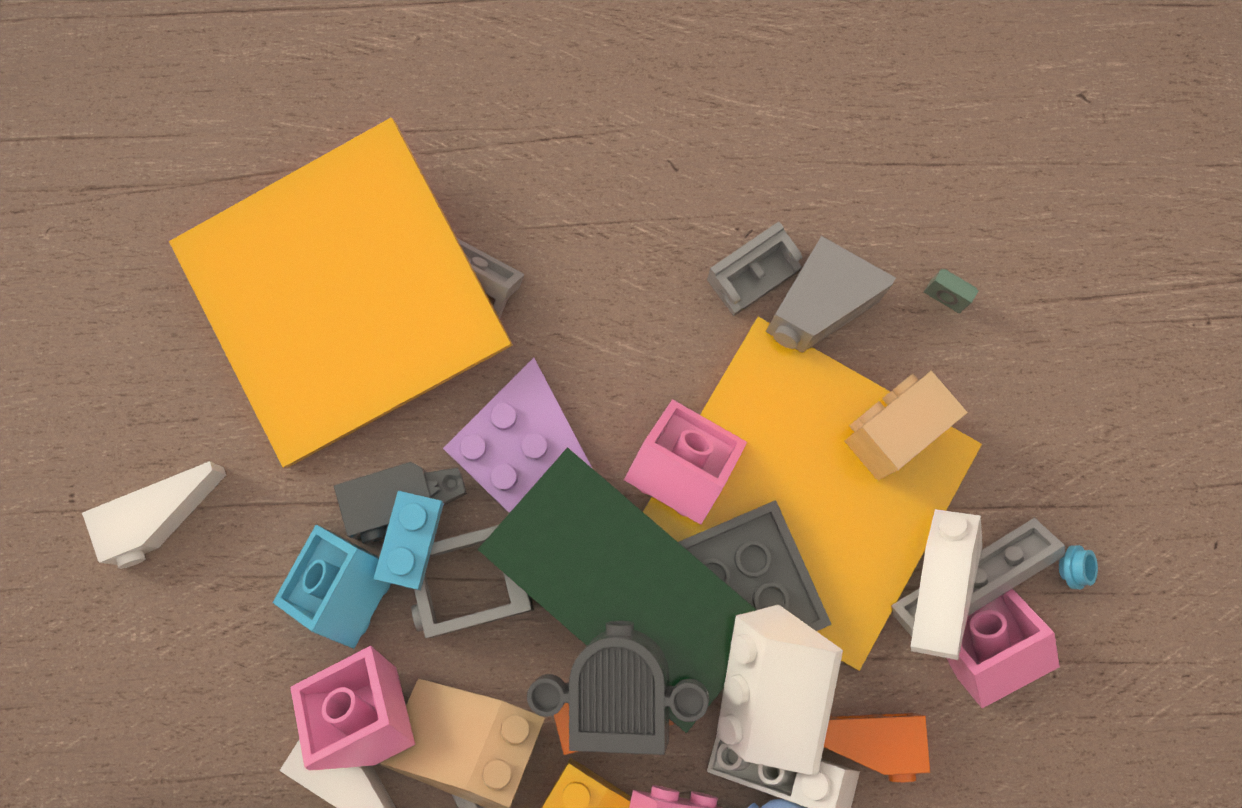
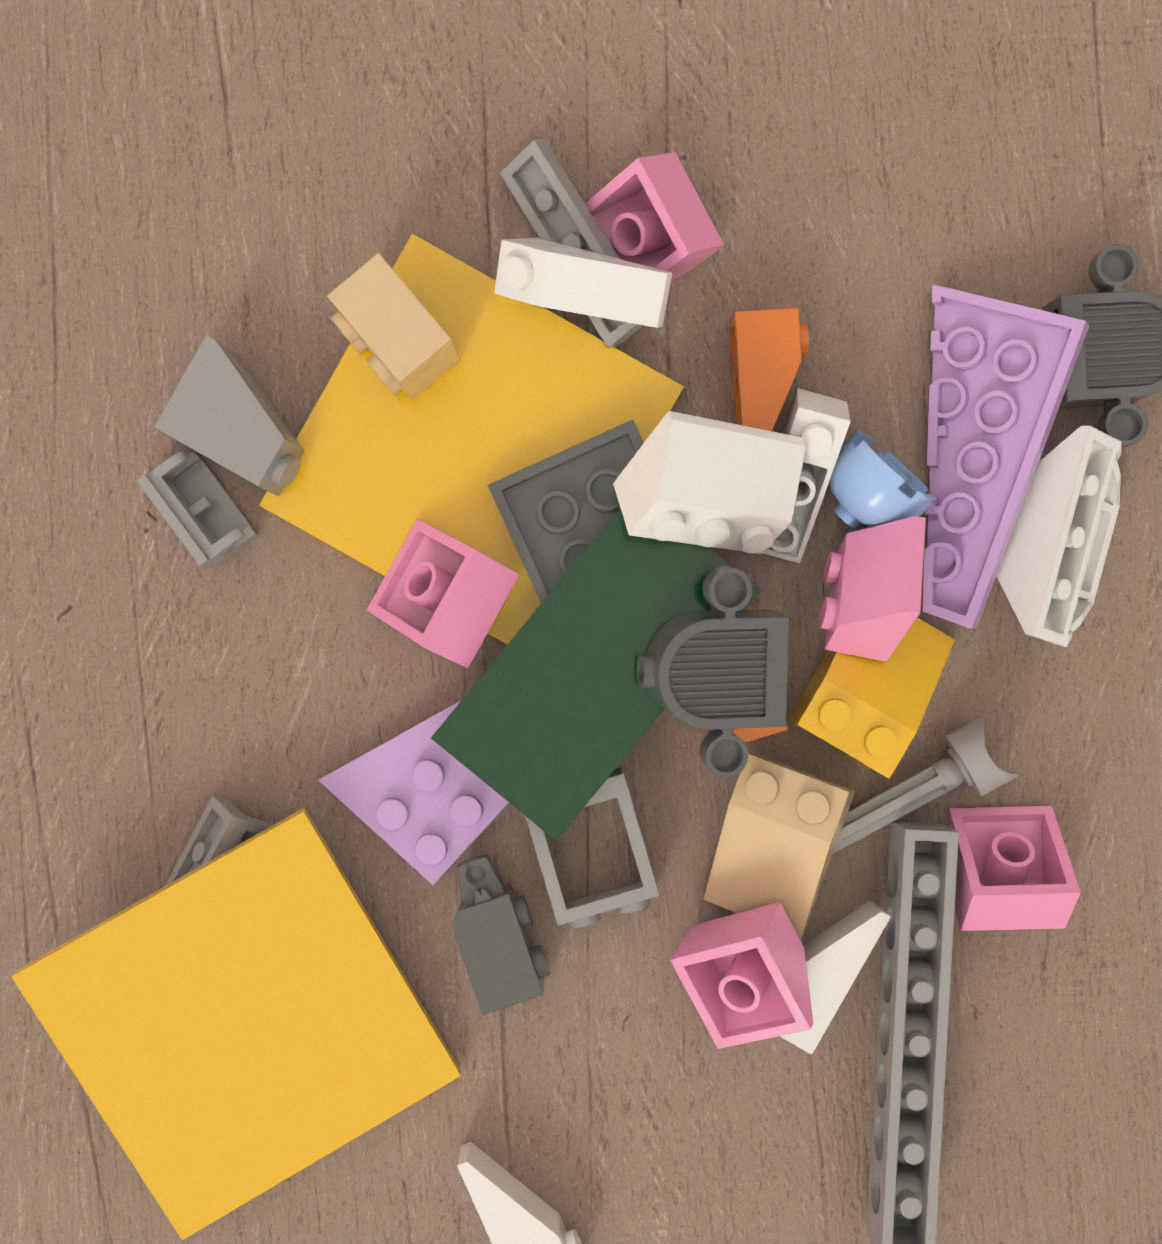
camera: 90 degrees left, 10 degrees up
(332, 588) = (601, 1004): medium azure slope -> none
(409, 540) = (546, 922): medium azure plate -> none
(951, 290) = (220, 265): sand green tile -> none
(1078, 567) = (558, 123): medium azure plate -> none

